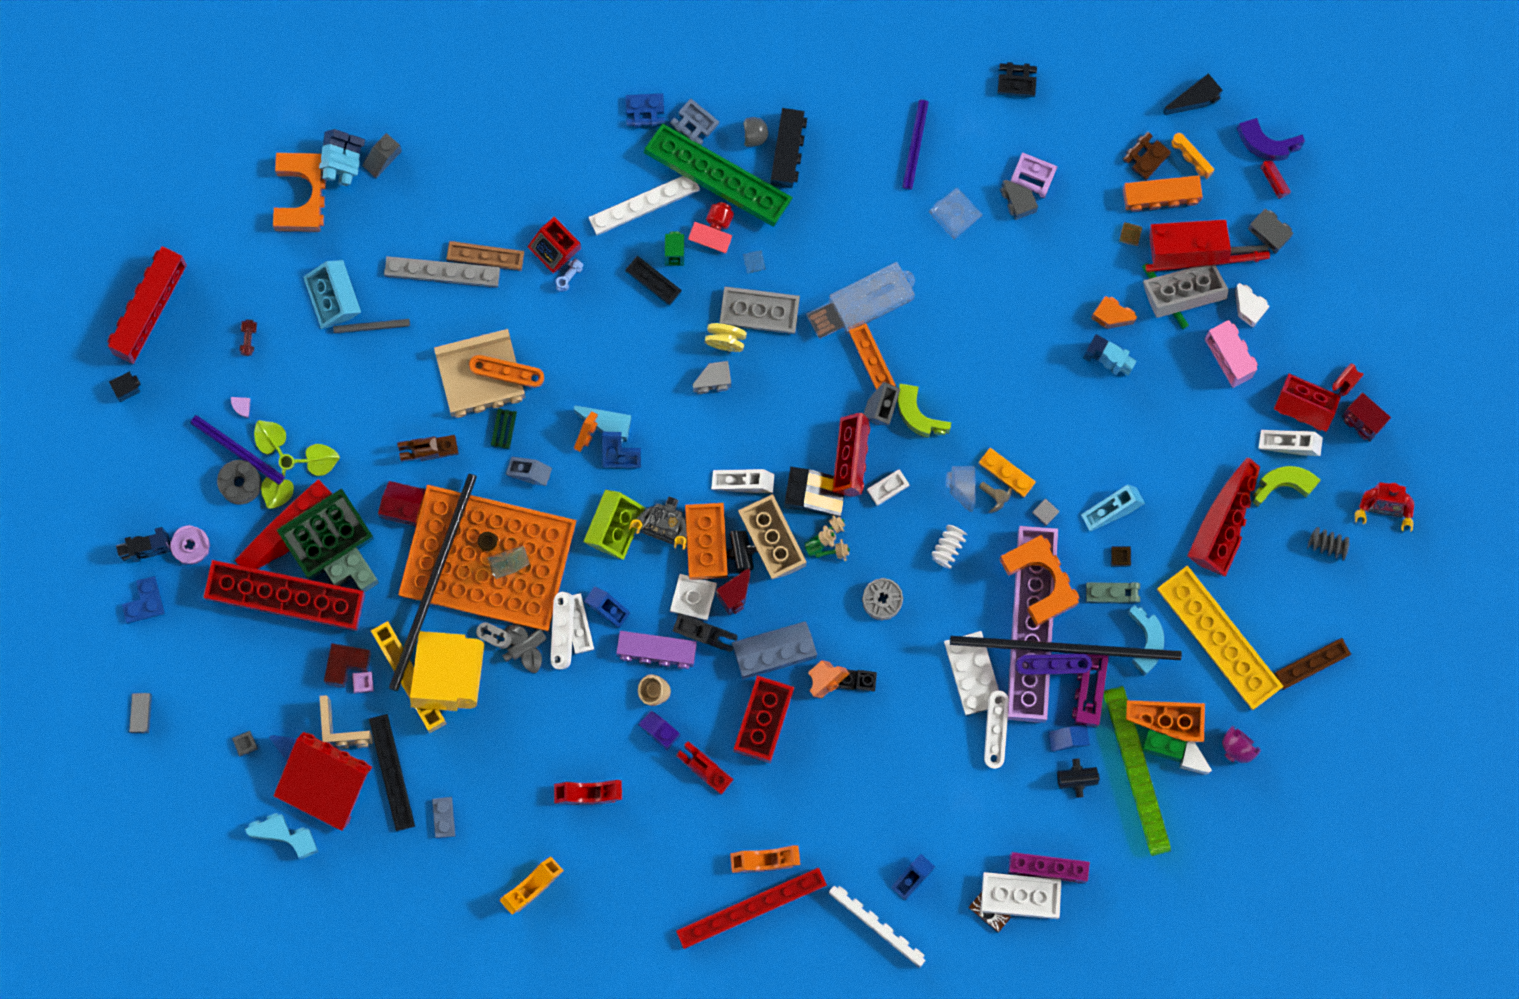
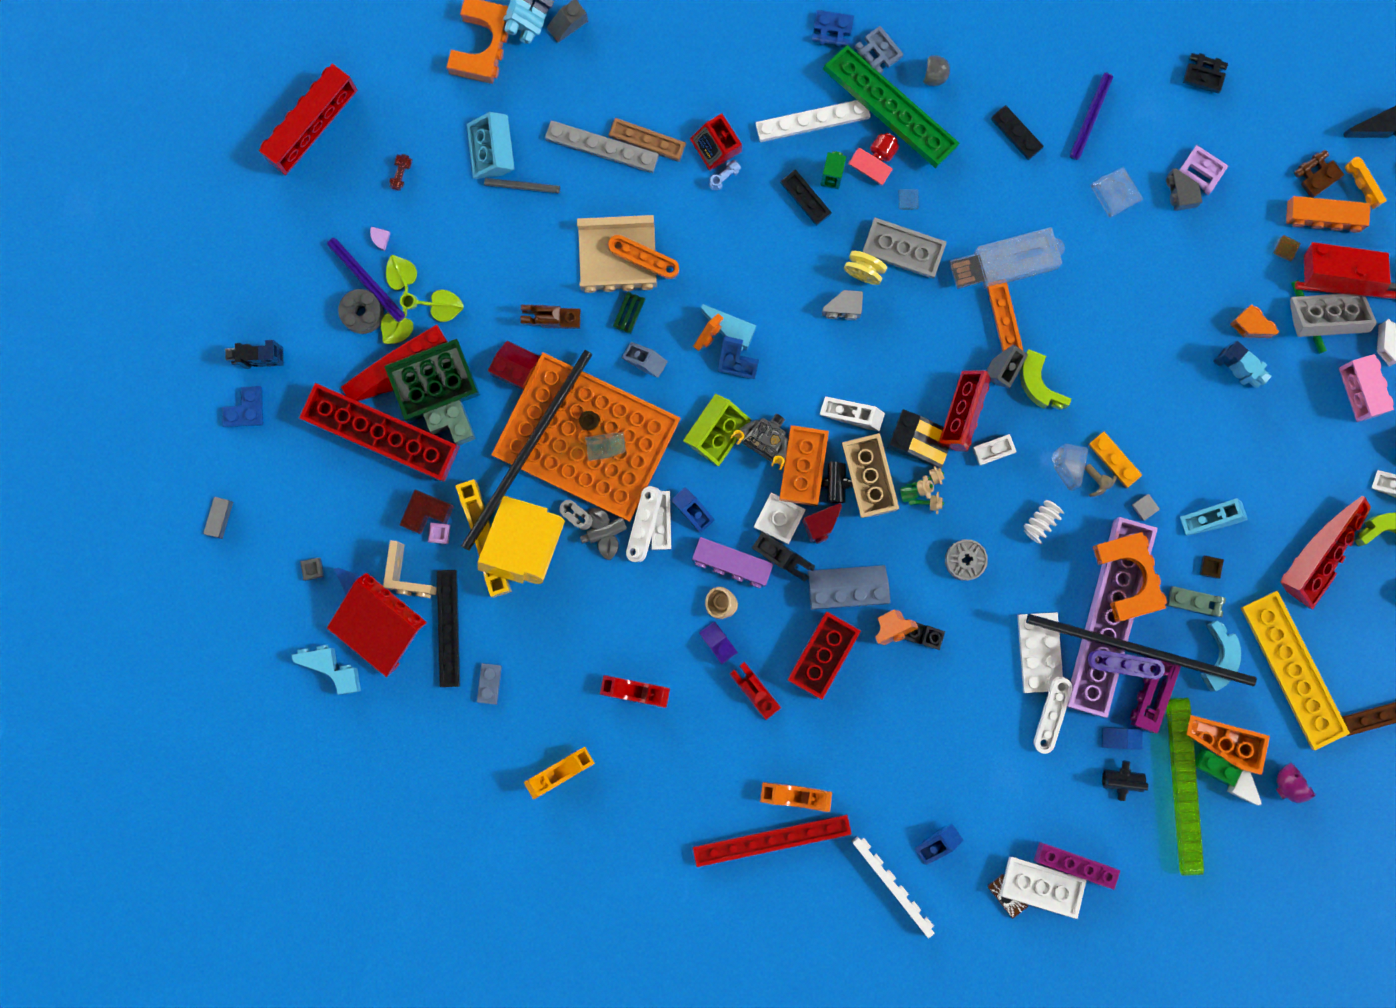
camera: 20 degrees right, 5 degrees up
(125, 386) = (271, 195): black brick -> none
(200, 549) = (309, 369): lavender plate -> none
(787, 148) = (965, 93): black brick -> none
(846, 175) = (1017, 132): none -> black plate

